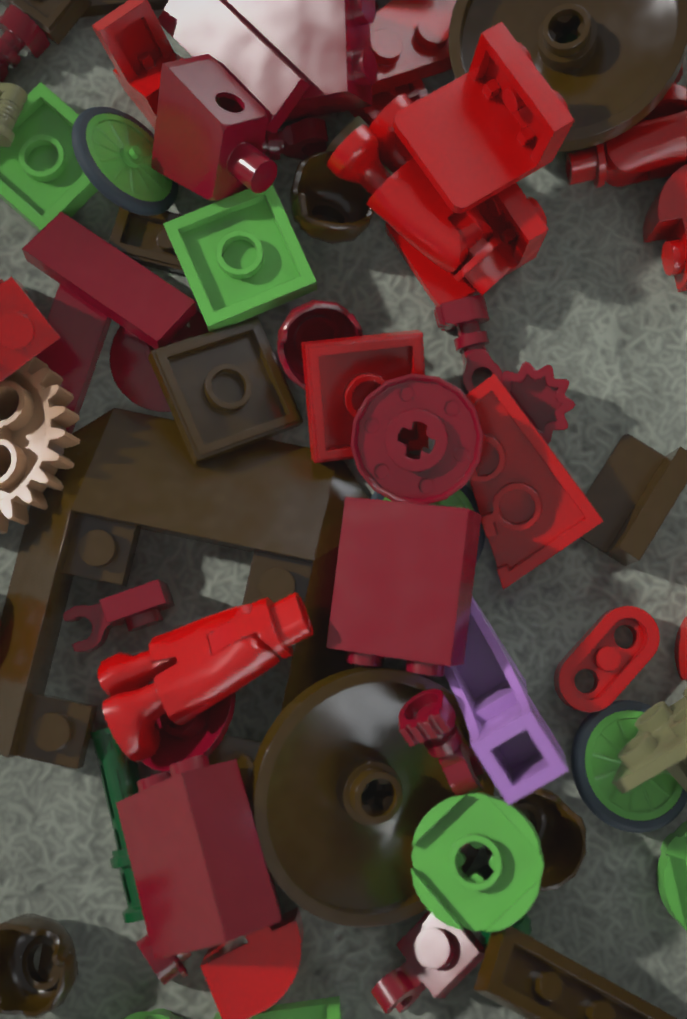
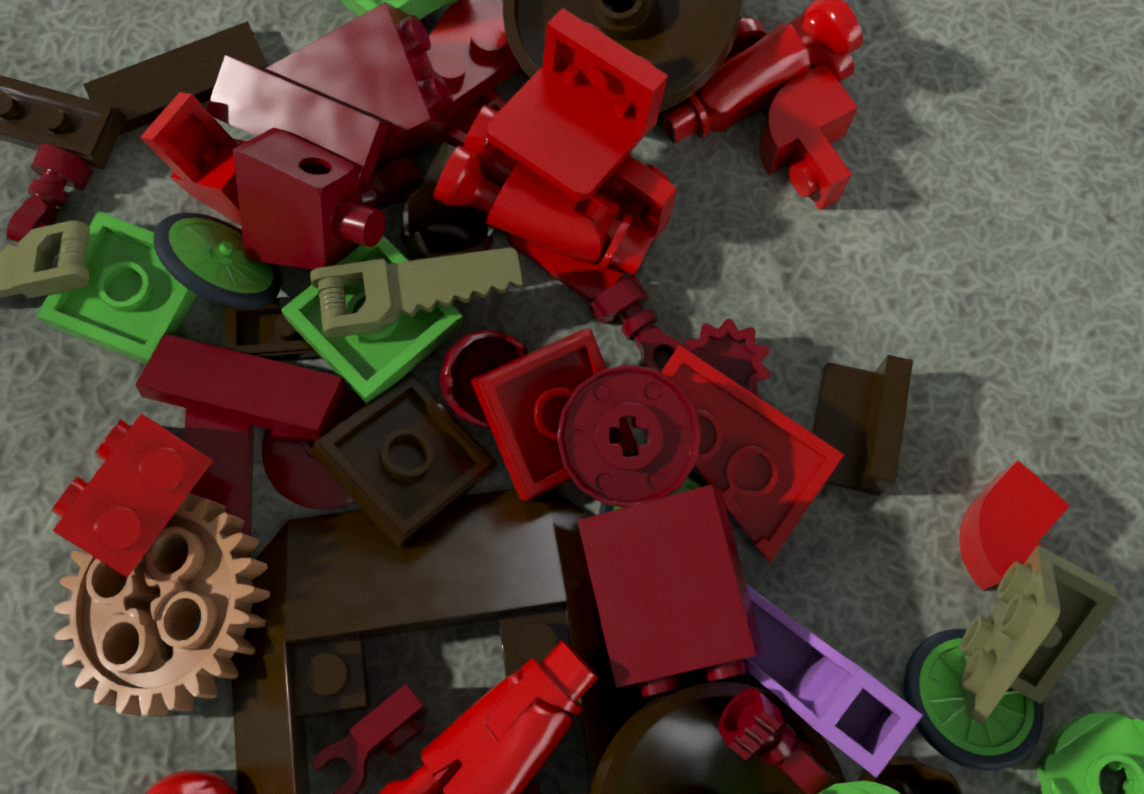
camera: 25 degrees left, 10 degrees down
(279, 240) = (410, 286): none -> olive piece
(608, 663) = (904, 599): red plate -> none

